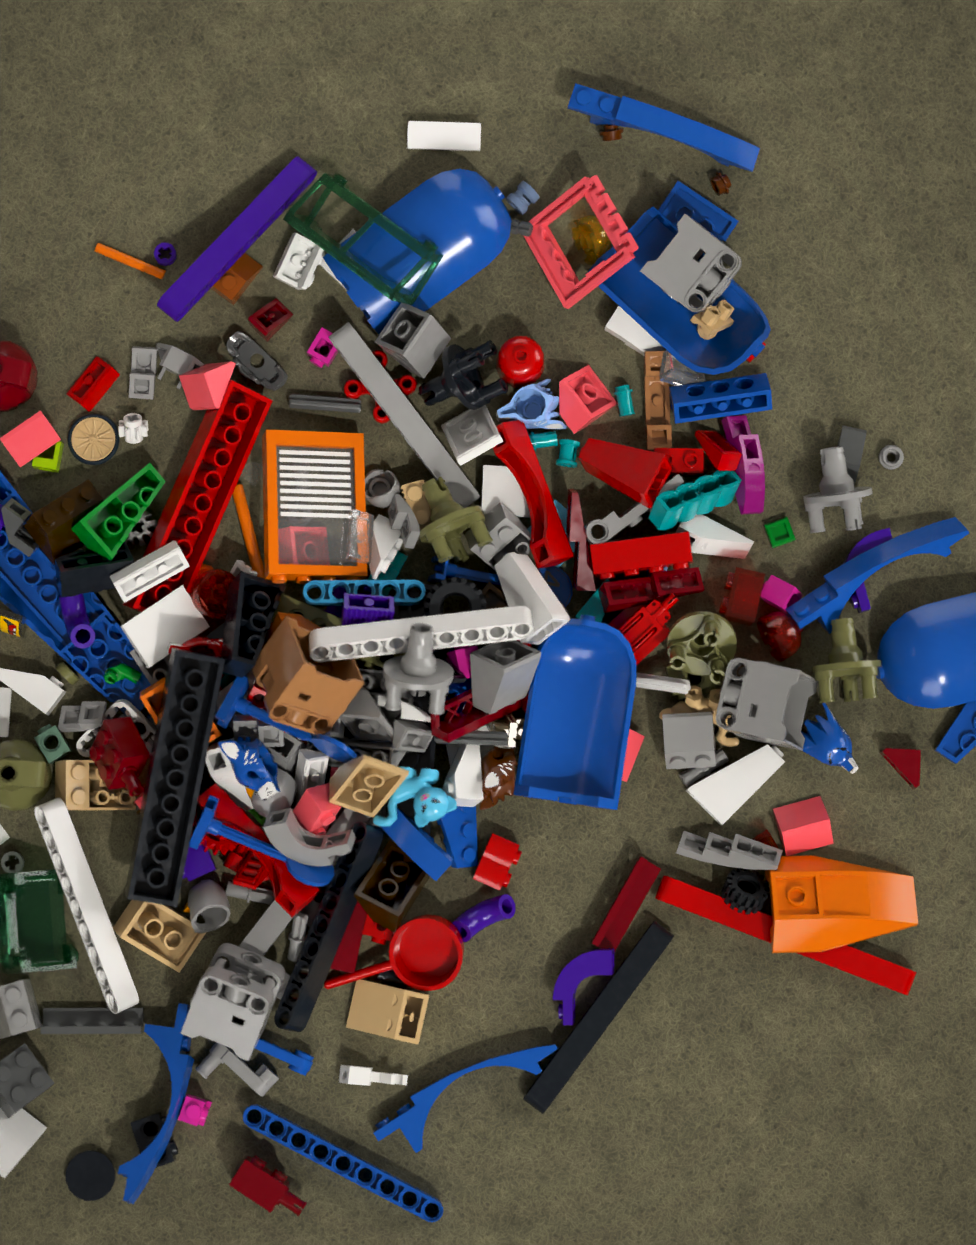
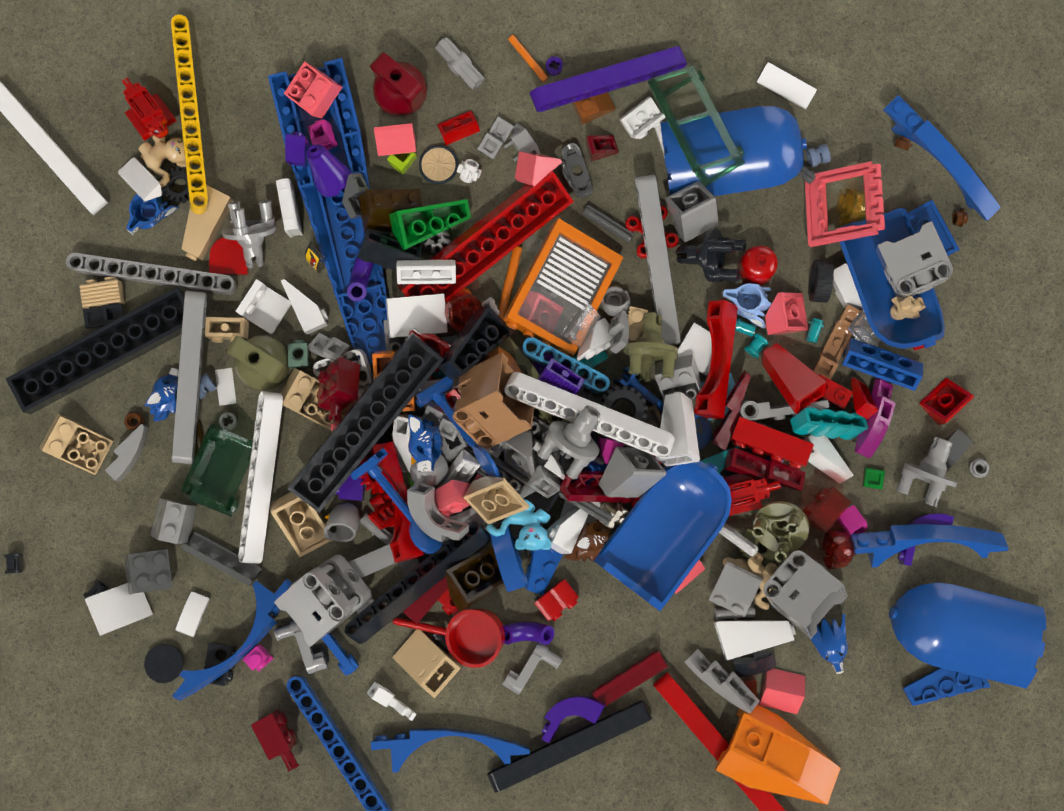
camera: 35 degrees right, 0 degrees up
(54, 309) = (459, 63): none -> light grey piece
(67, 673) = (334, 311): olive tile -> none
(92, 1102) = (192, 614): none -> white slope
(120, 672) = (370, 331): green arm -> none
(297, 936) = (392, 577): light grey axle -> none
(320, 341) = (628, 179): dark pink brick -> none
(471, 434) = (698, 296): white tile -> none
(501, 978) = (516, 682): none -> light grey beam
(600, 341) = (820, 281): none -> black tyre
(740, 899) = (711, 718): black tyre -> none
(762, 808) = (762, 662): none -> black slope
(813, 402) = (945, 401): none -> red slope
(848, 664) = (873, 596): olive piece -> none
(906, 763) = (877, 687): dark red slope -> none

